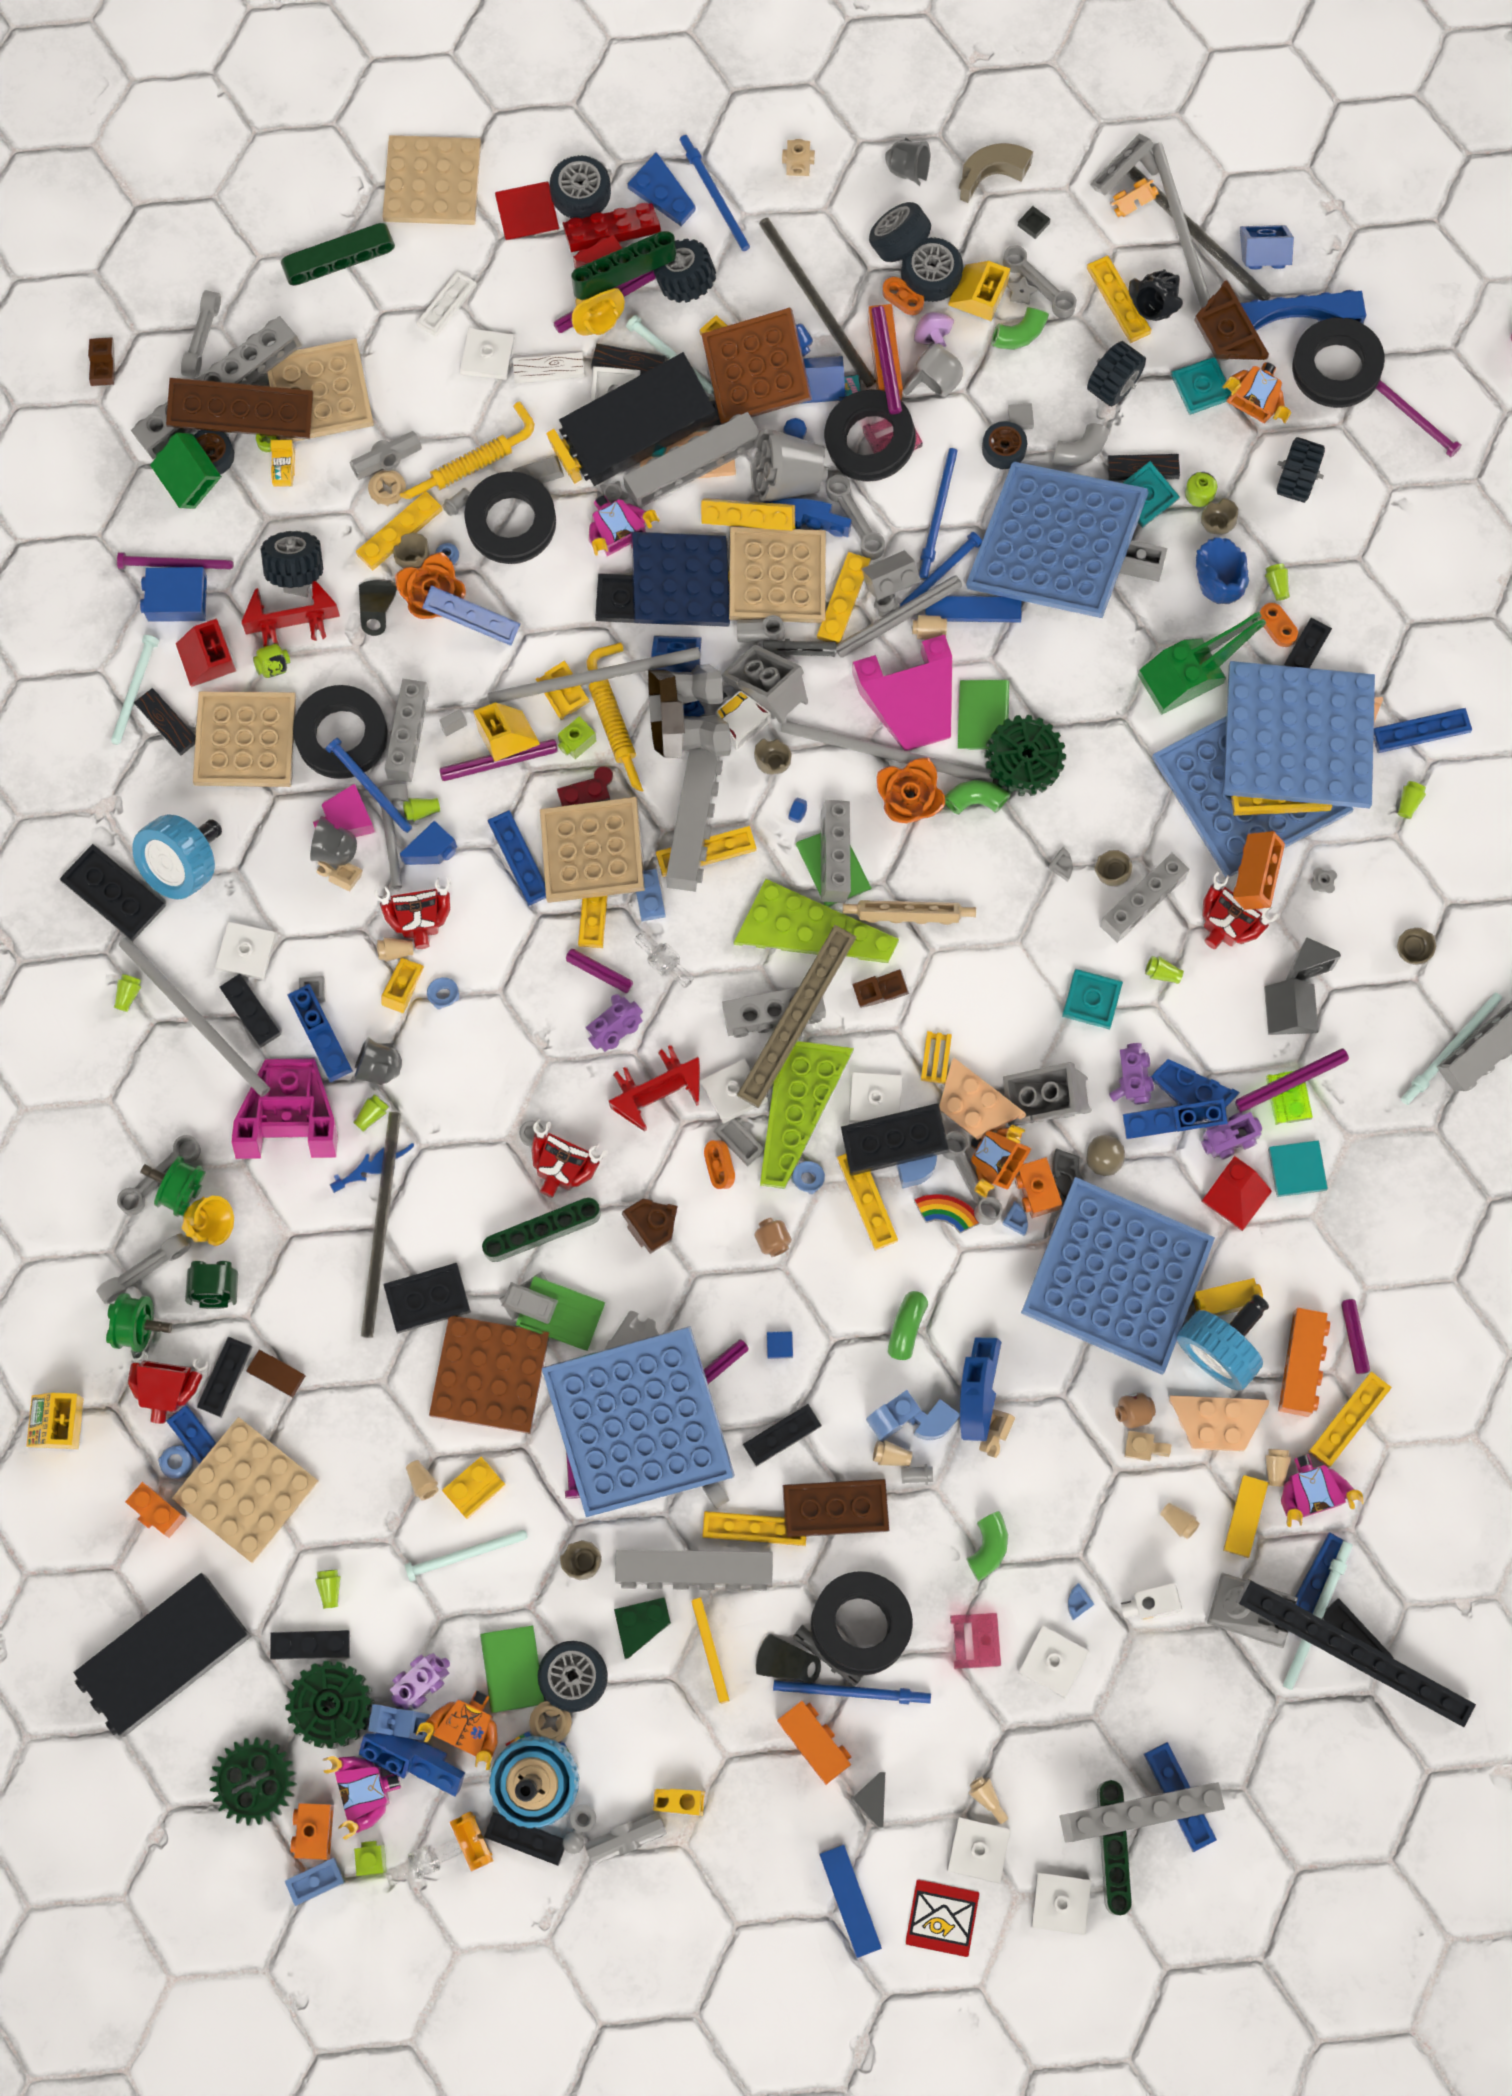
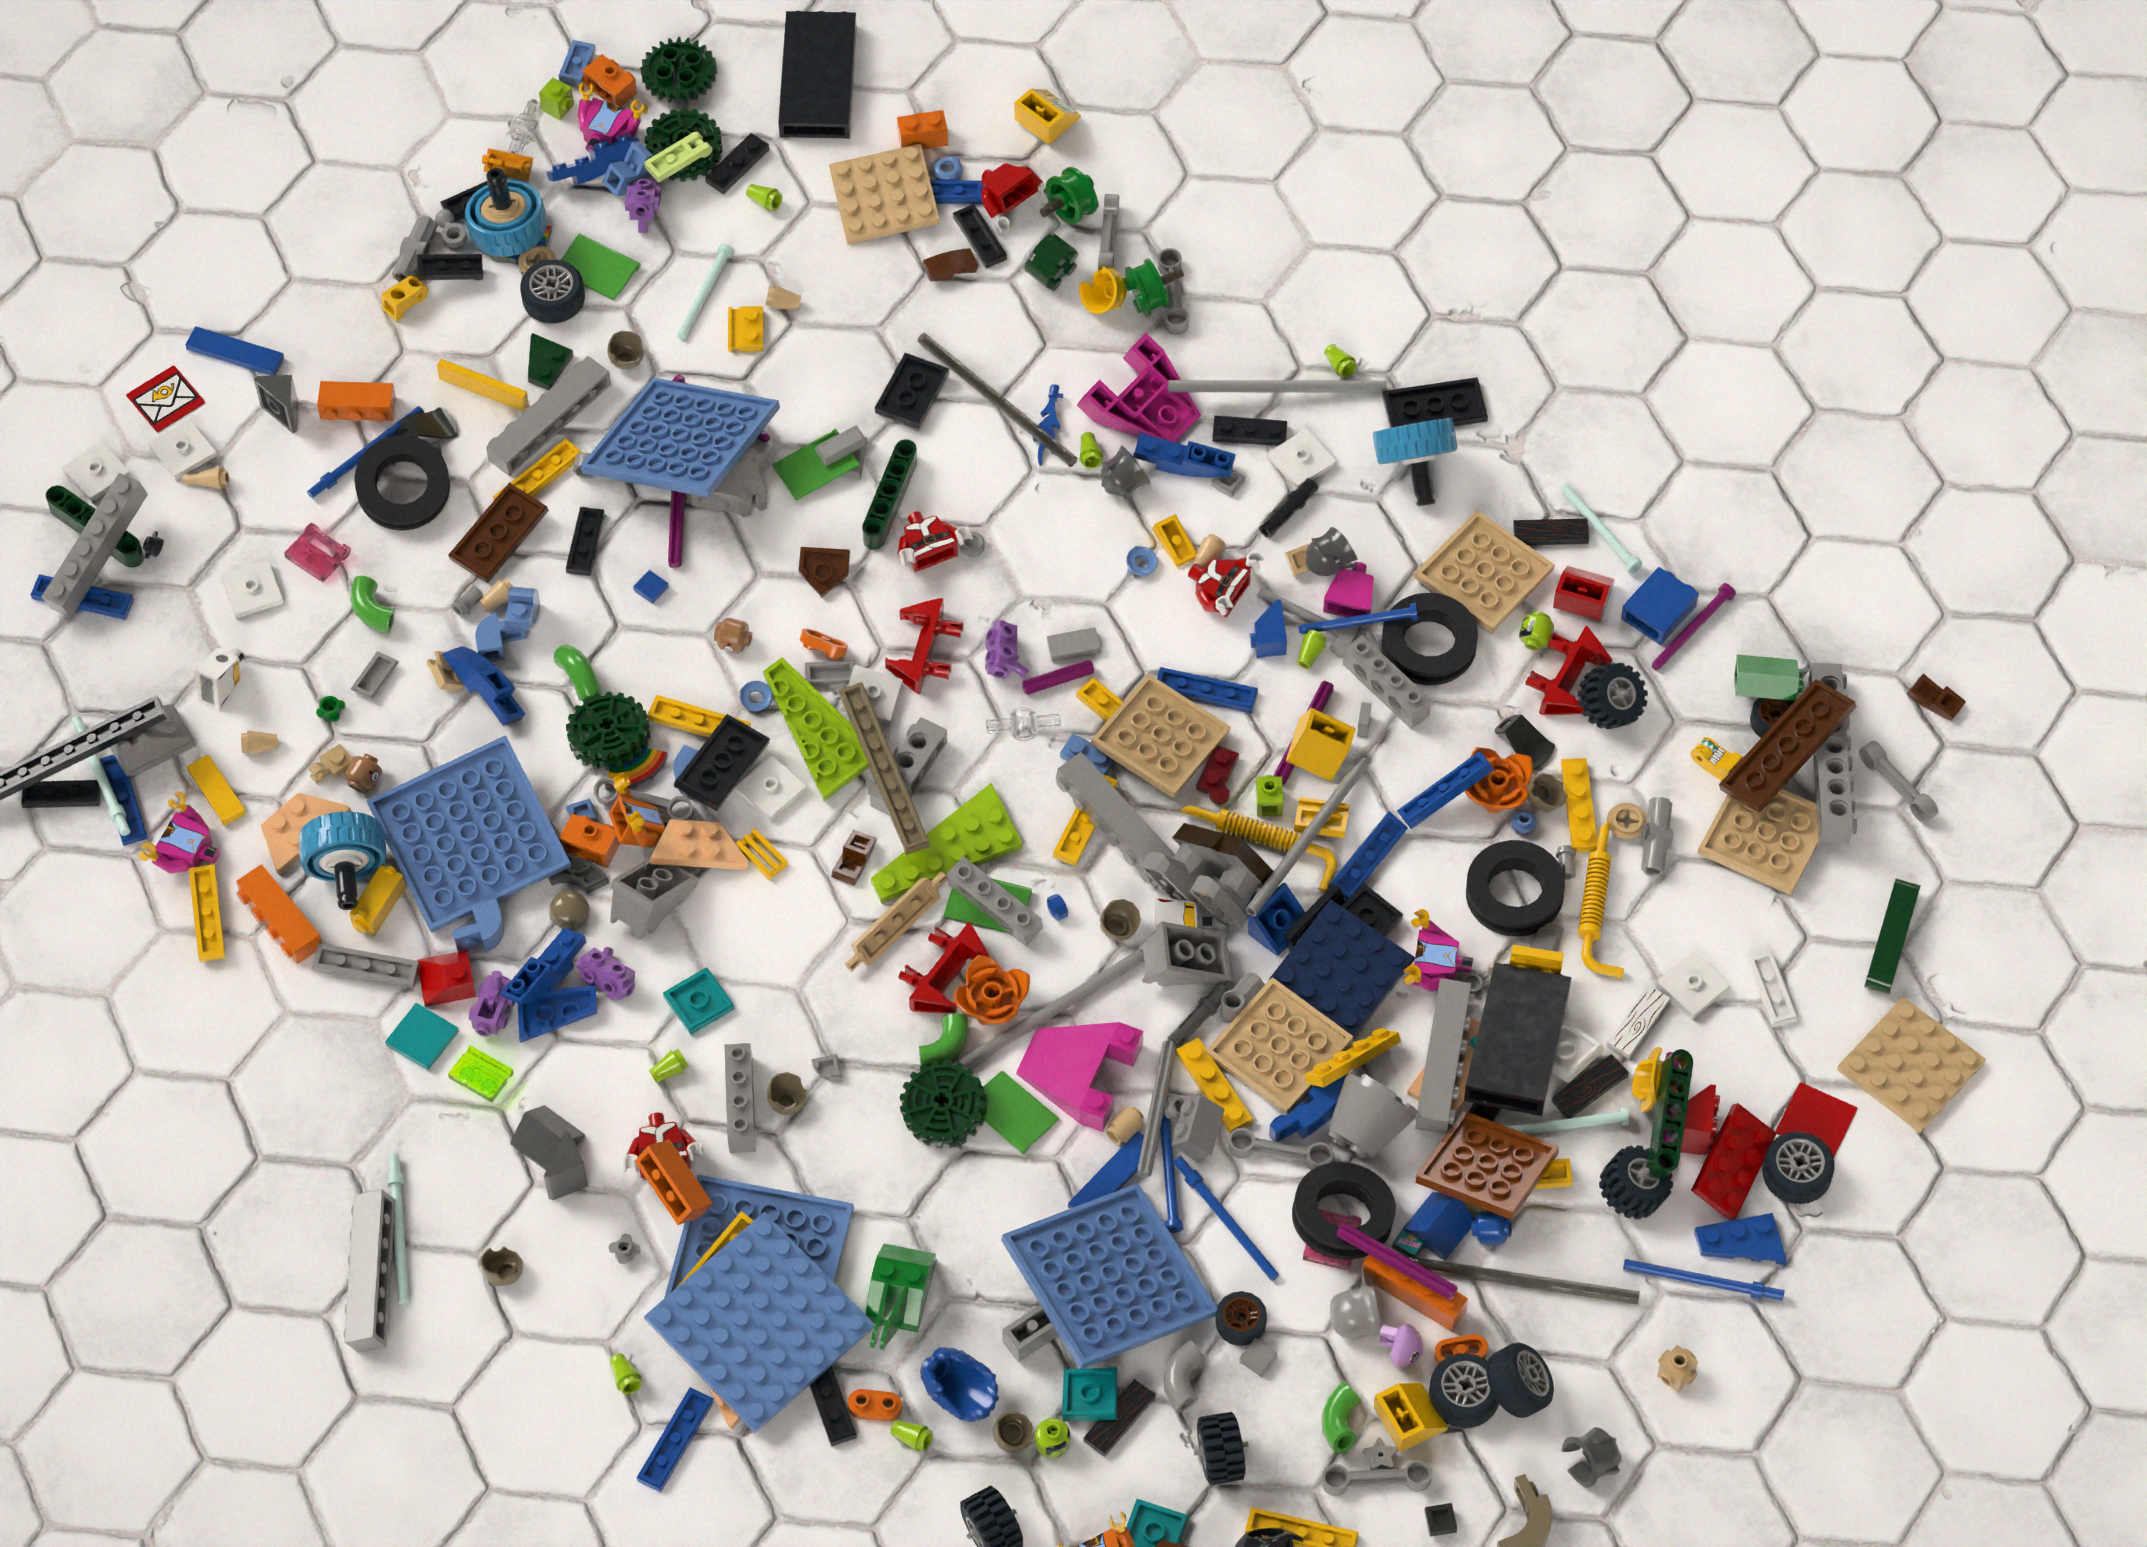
camera: 130 degrees right, 15 degrees down
(298, 922) = (1295, 501): none -> black pin
(356, 1683) = (677, 156): none -> yellowish green plate
(465, 1727) = (584, 208): orange torso -> none
(489, 1374) = (818, 391): dark orange plate -> none
(559, 983) = (1073, 644): none -> light grey tile
(568, 635) = (1369, 855): none -> blue tile
(621, 1785) = (449, 267): none -> black hinge
(654, 629) = (1299, 928): none -> black tile
(796, 428) = (1406, 1166): blue tile -> none
(935, 1235) = (608, 731): none -> dark green piece
(951, 841) = (929, 988): none -> red hose
(1043, 1486) = (374, 675): none -> light grey tile
(1078, 1602) = (274, 637): medium blue tile -> none
(1088, 1780) = (153, 545): none -> black plate
(1108, 1497) = (330, 702): none -> green plate
(1177, 1194) = (486, 930): none -> medium blue brick
(1277, 1466) = (227, 837): tan cone -> none
(1283, 1258) = (366, 965): none -> light grey plate
(1291, 1080) = (489, 1078): magenta axle -> none
(1355, 1336) = (260, 970): magenta axle -> none

